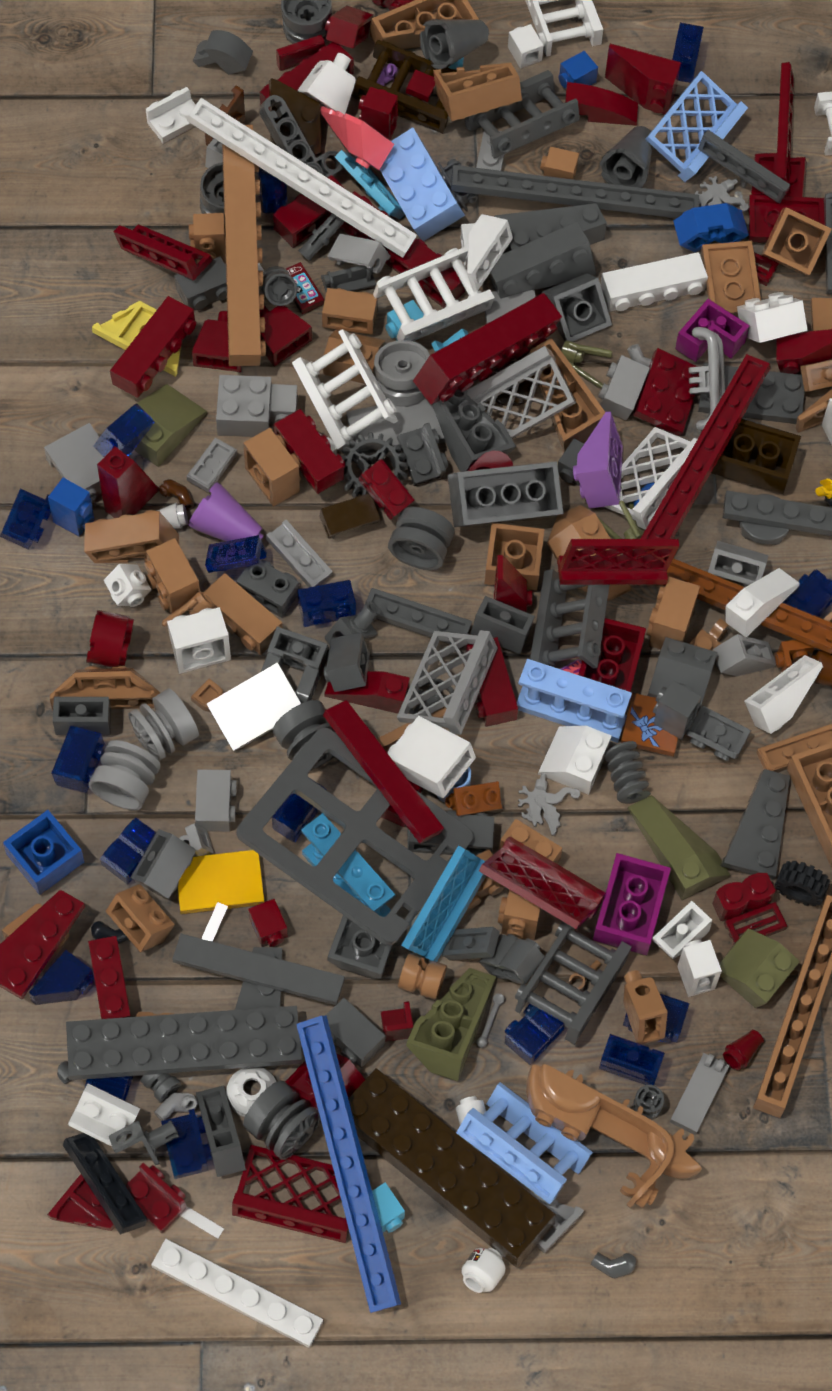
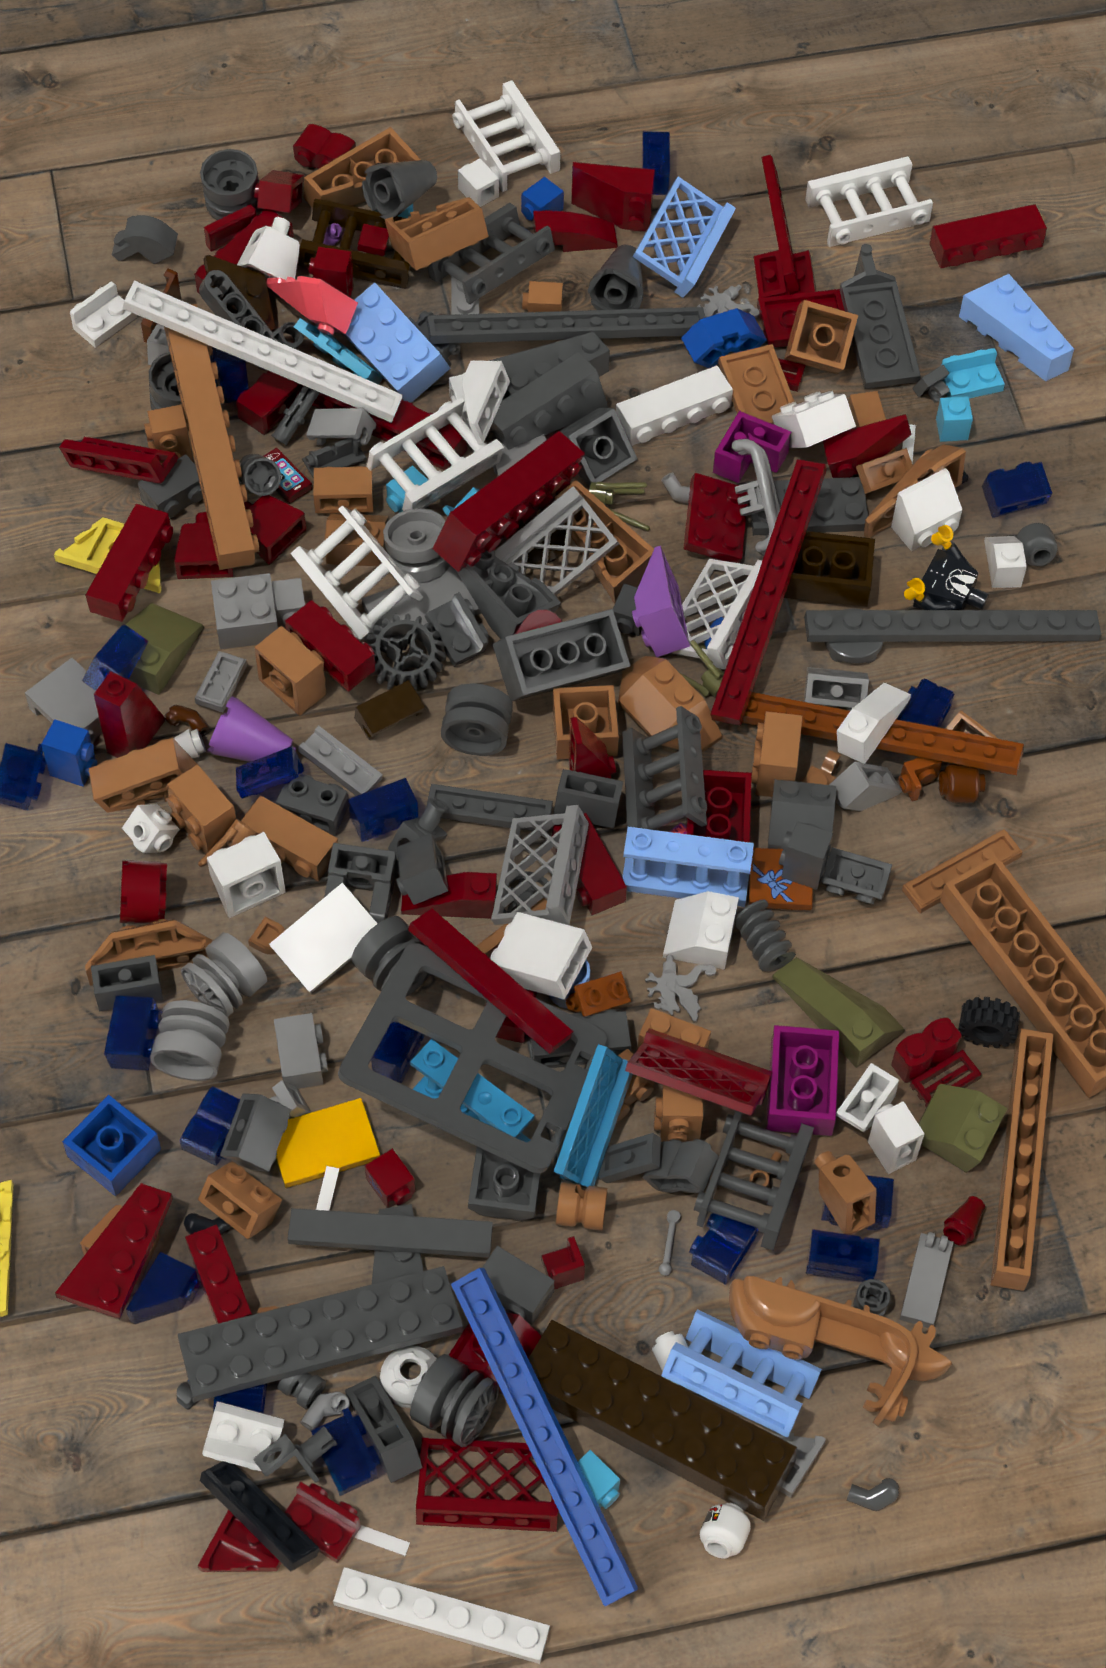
camera: 10 degrees left, 5 degrees down
(385, 489) = (426, 671): dark red brick -> none
(448, 1030) = (624, 1261): olive wedge -> none
(609, 569) = (697, 712): dark red fence -> none
(623, 387) = (666, 519): light grey brick -> none
(743, 166) = (746, 268): dark grey tile -> none
(759, 832) = (926, 977): dark grey wing -> none
(781, 697) = (918, 822): white slope -> none

